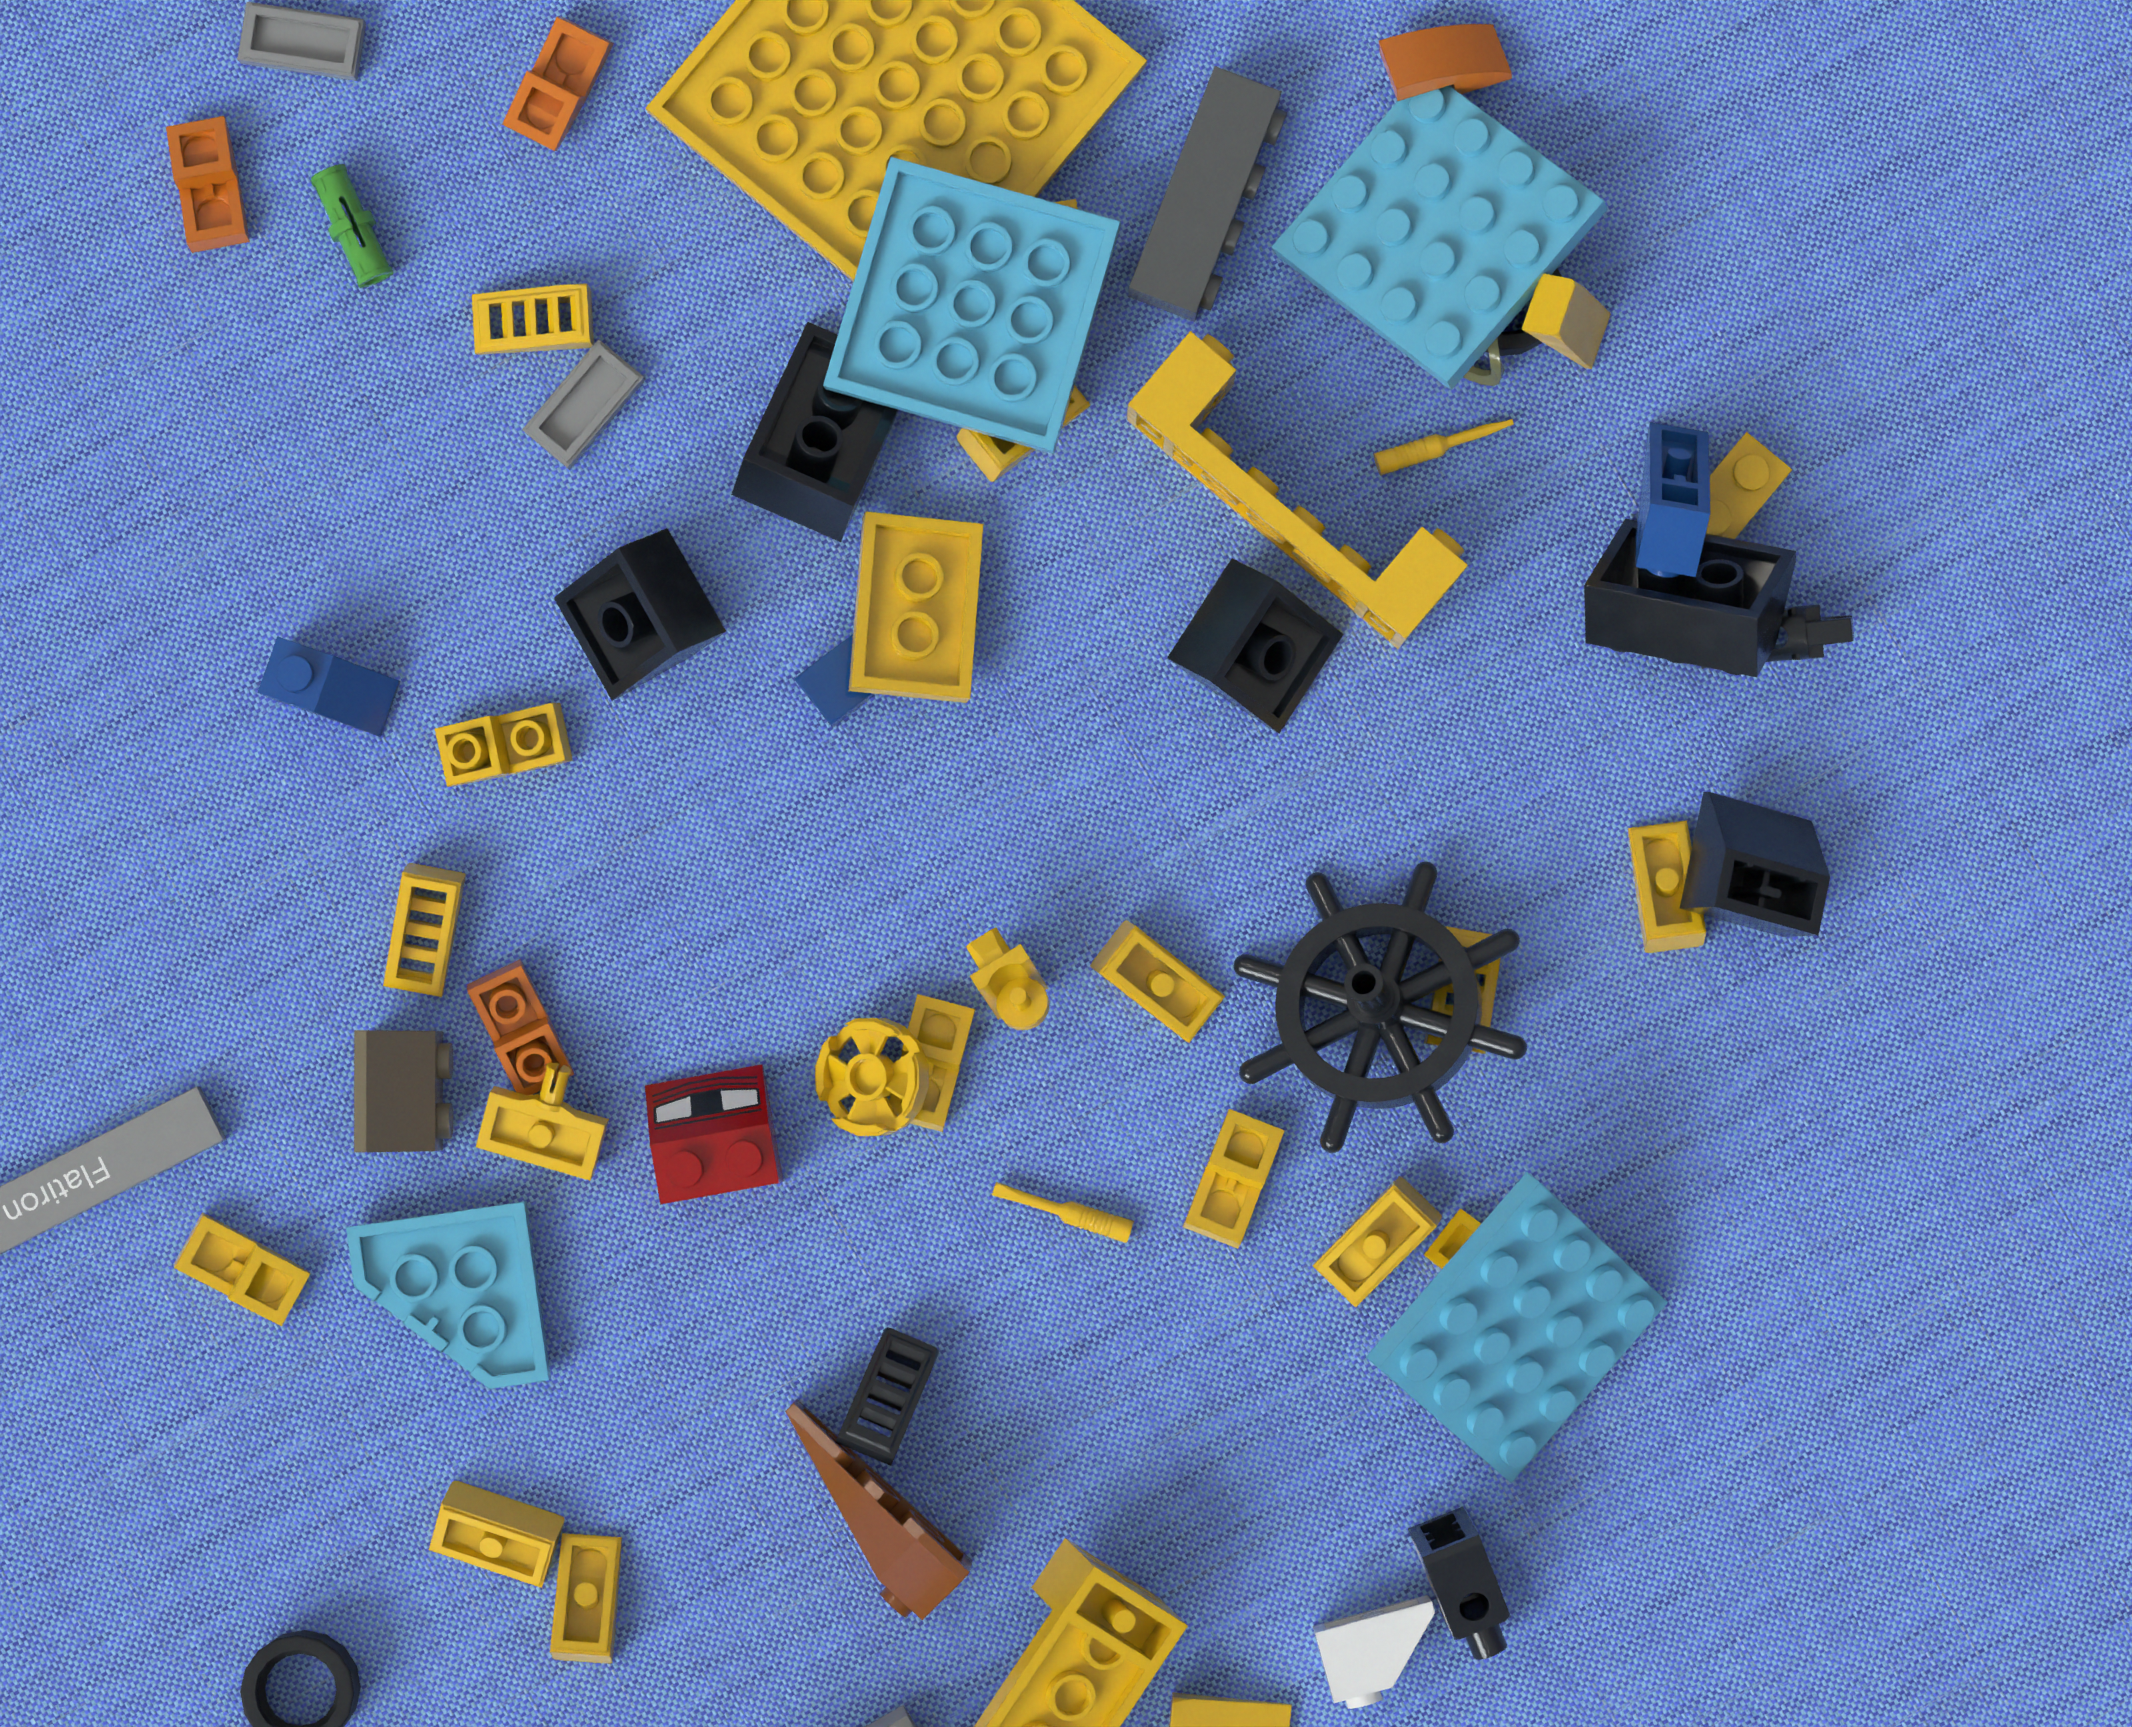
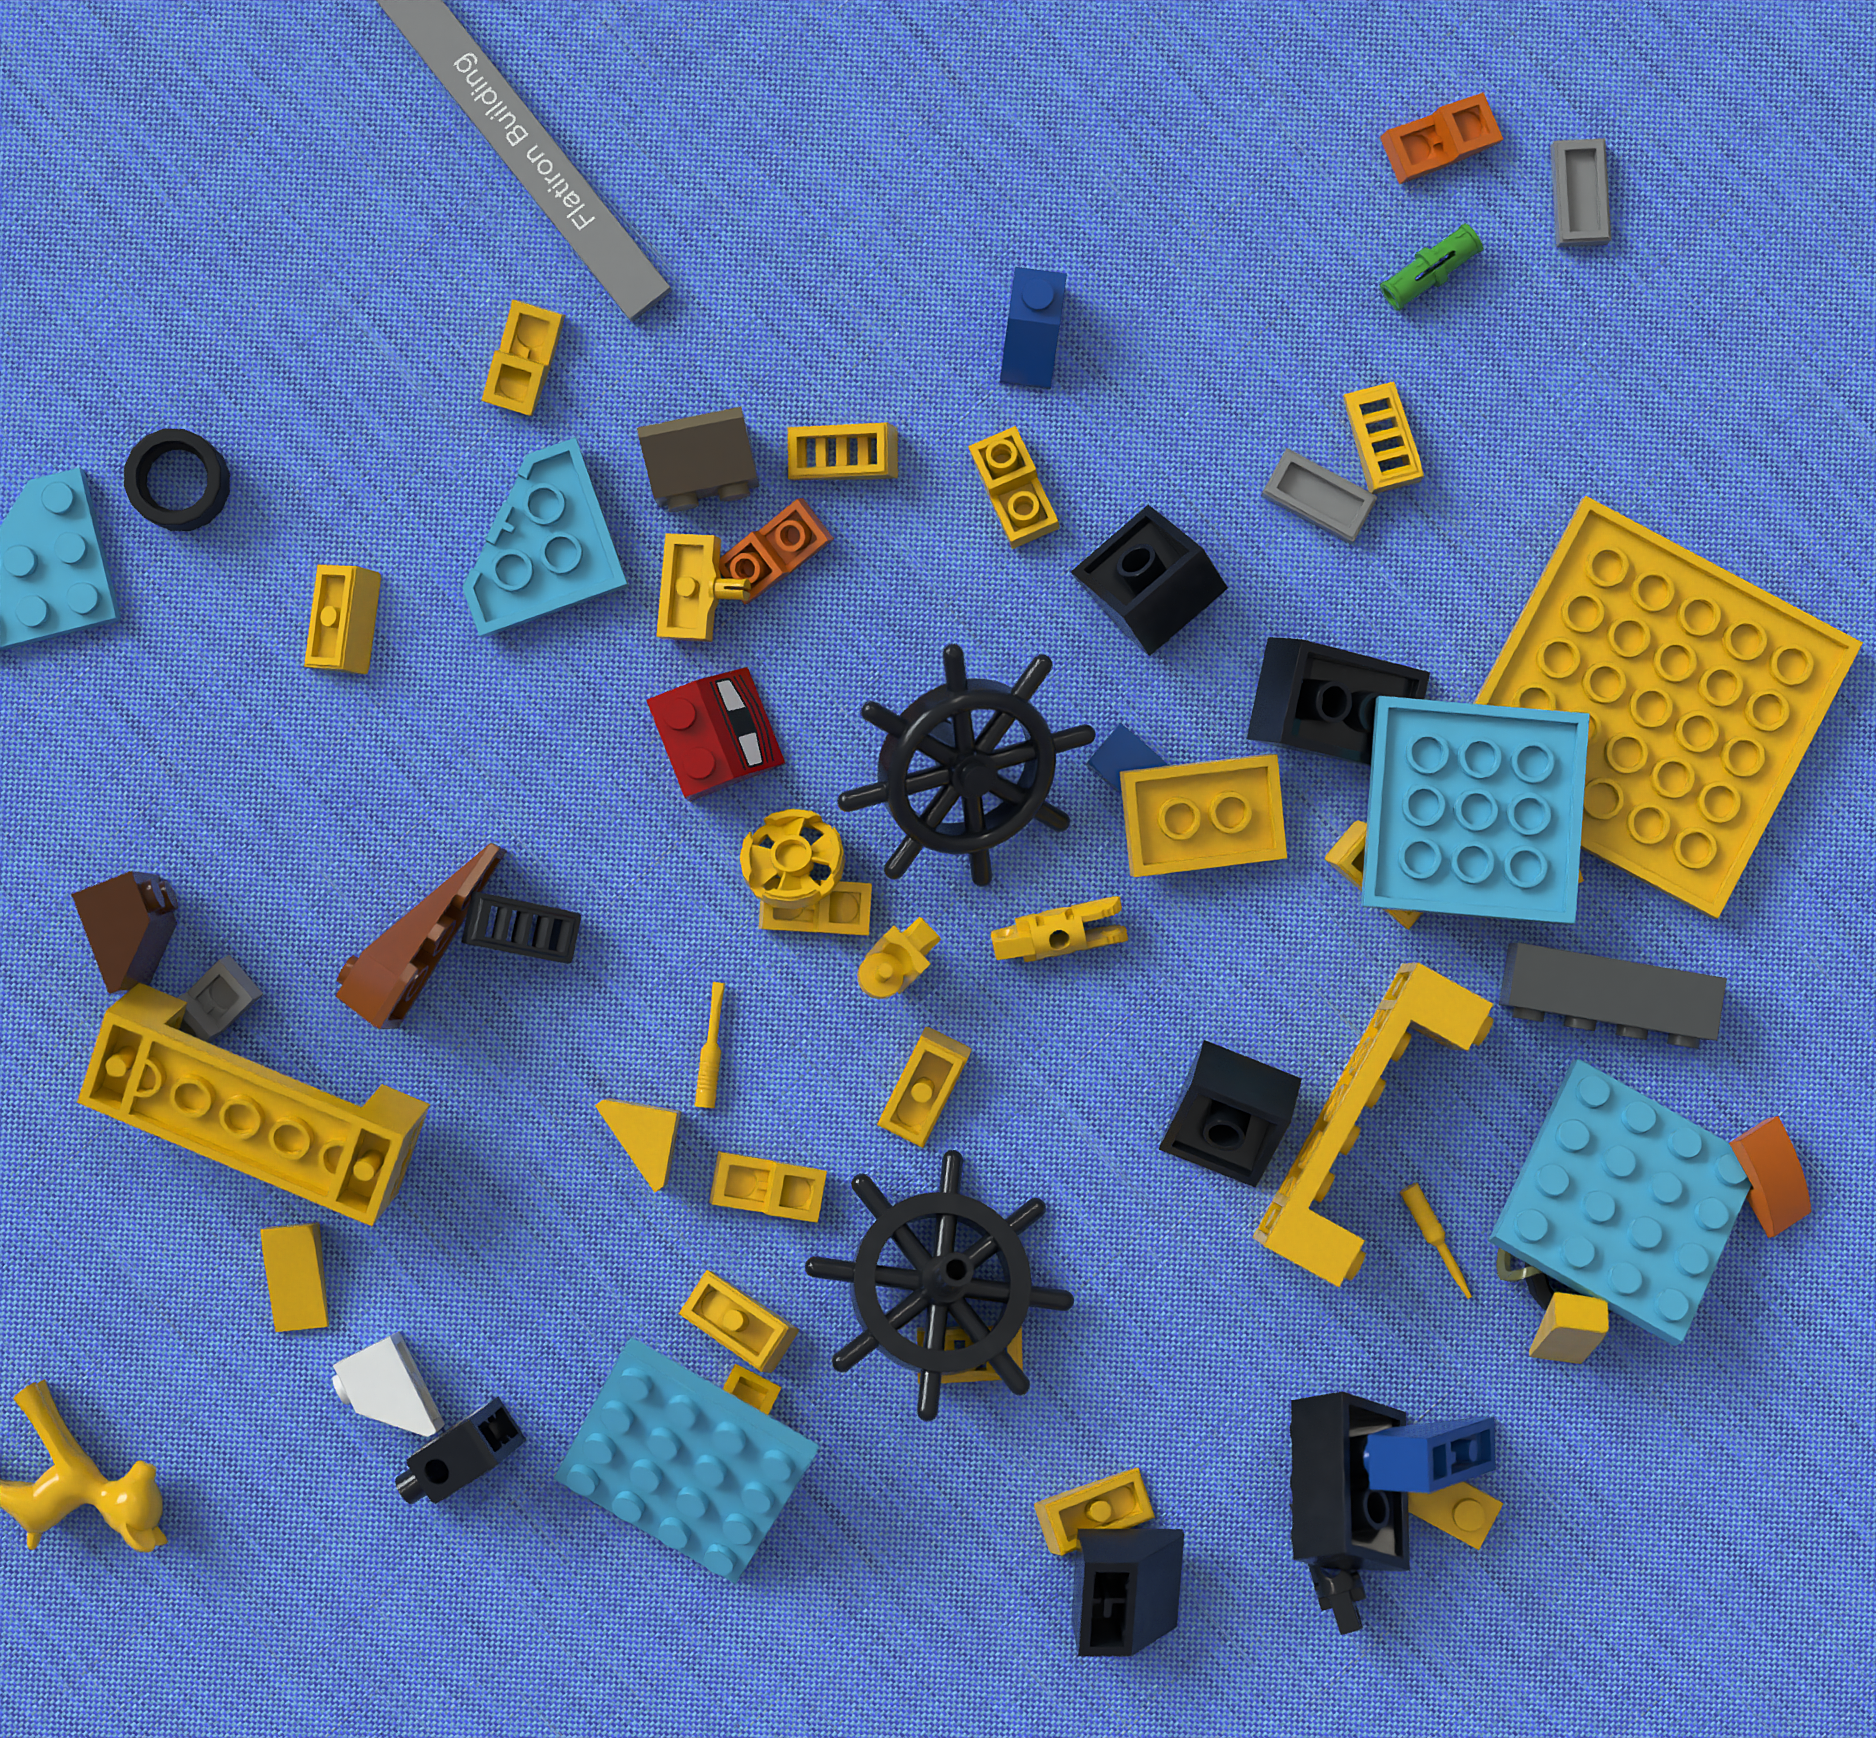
camera: 70 degrees right, 0 degrees up
(558, 83) = (1590, 418): orange slope -> none
(586, 1598) = (302, 706): yellow slope -> none
(808, 860) = (966, 765): none -> black piece
(1010, 823) = (1033, 932): none -> yellow hinge
(1148, 1302) = (646, 1135): none -> yellow slope

